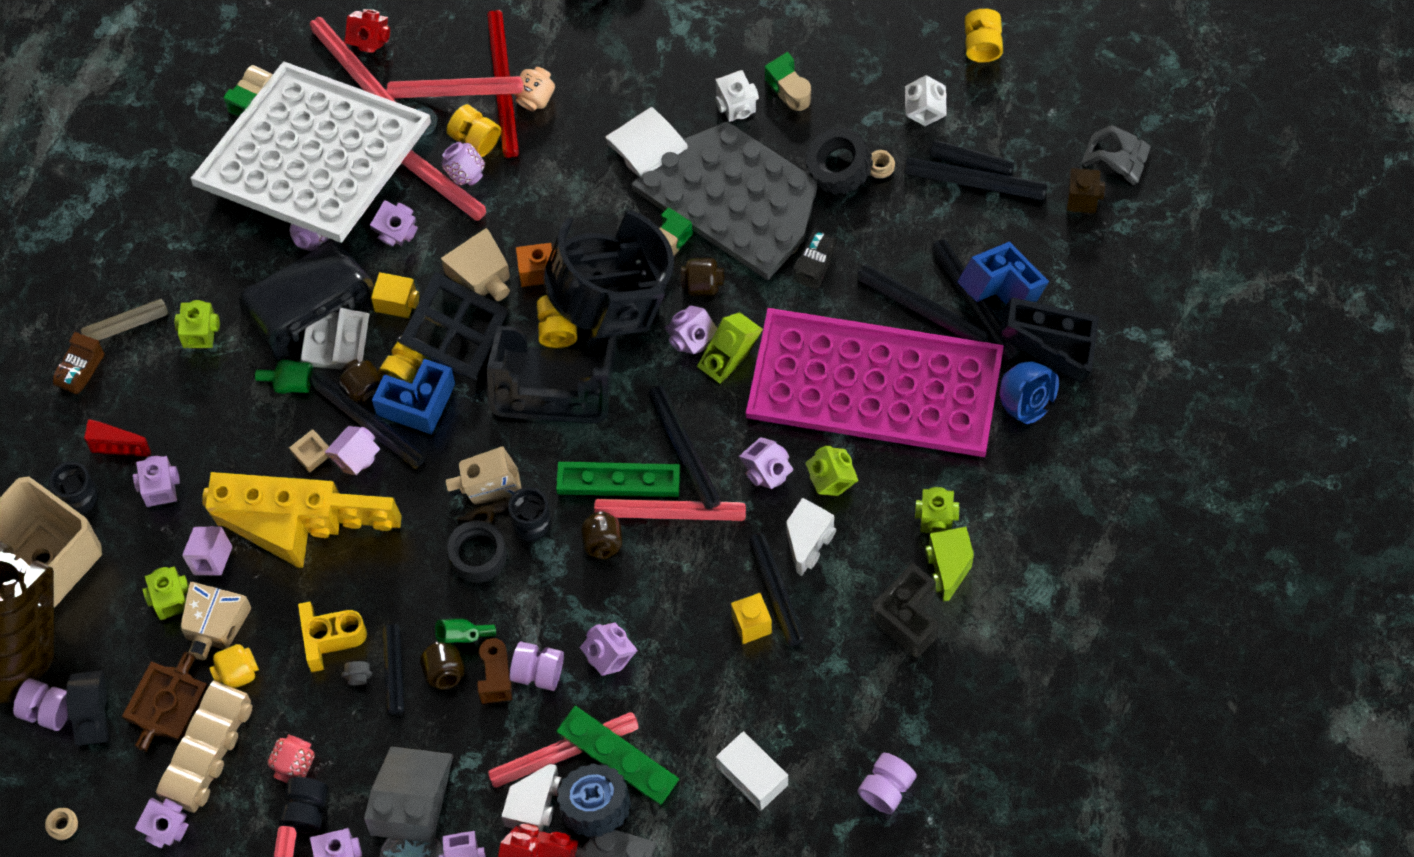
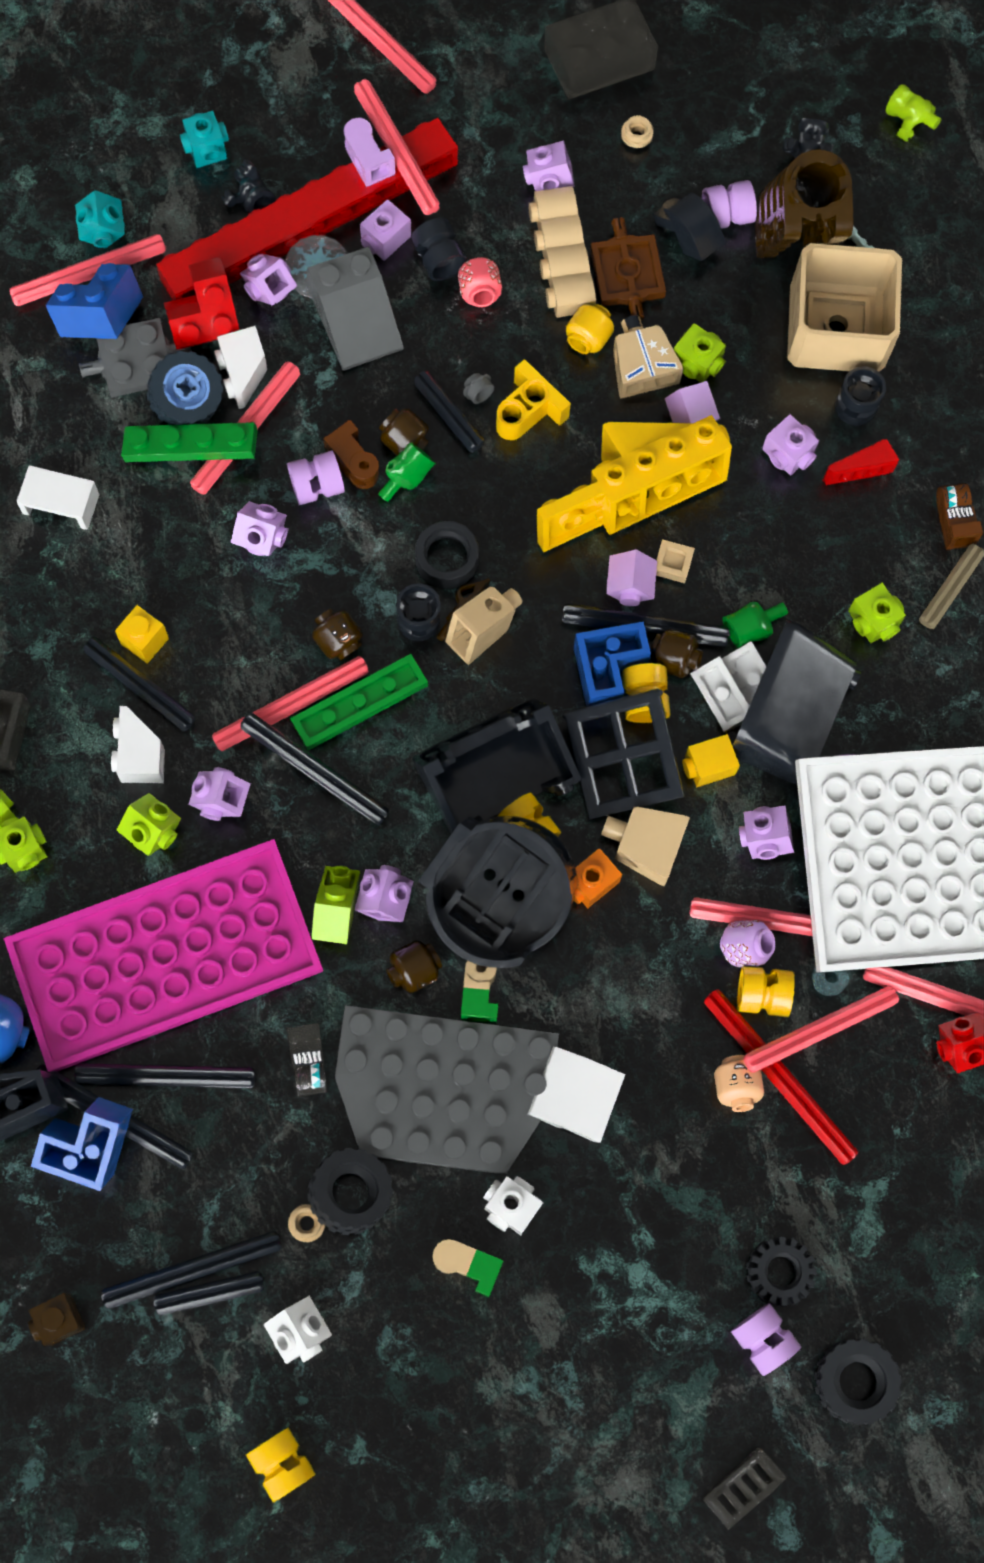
camera: 140 degrees right, 10 degrees up
(1127, 160) = (29, 1408): dark grey piece -> none

